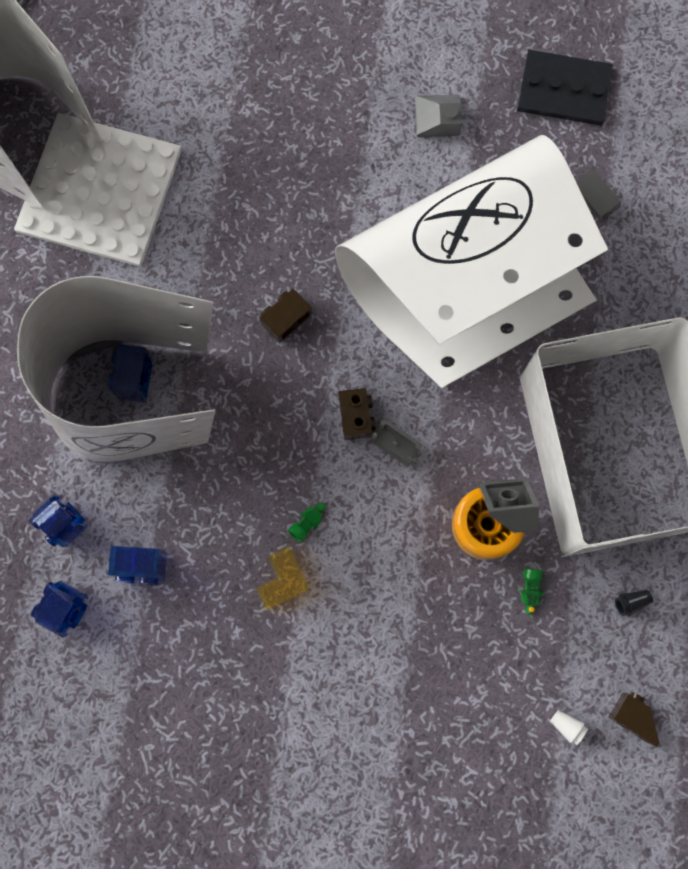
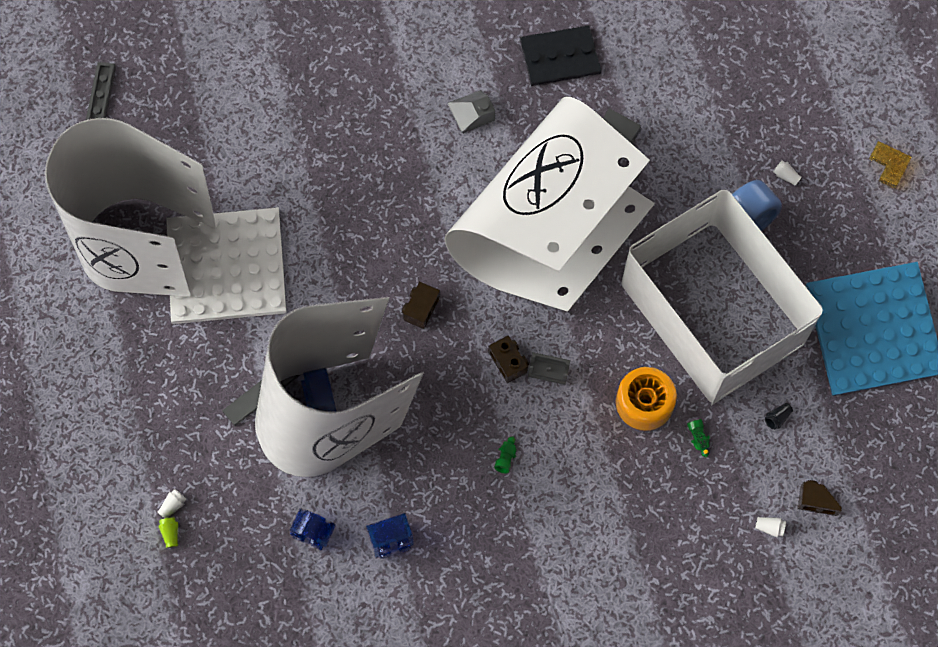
camera: 25 degrees left, 10 degrees down
(60, 608) = (342, 594): clear blue brick -> none
(289, 581) = (511, 503): clear yellow plate -> none
(512, 504) = (659, 372): dark grey slope -> none

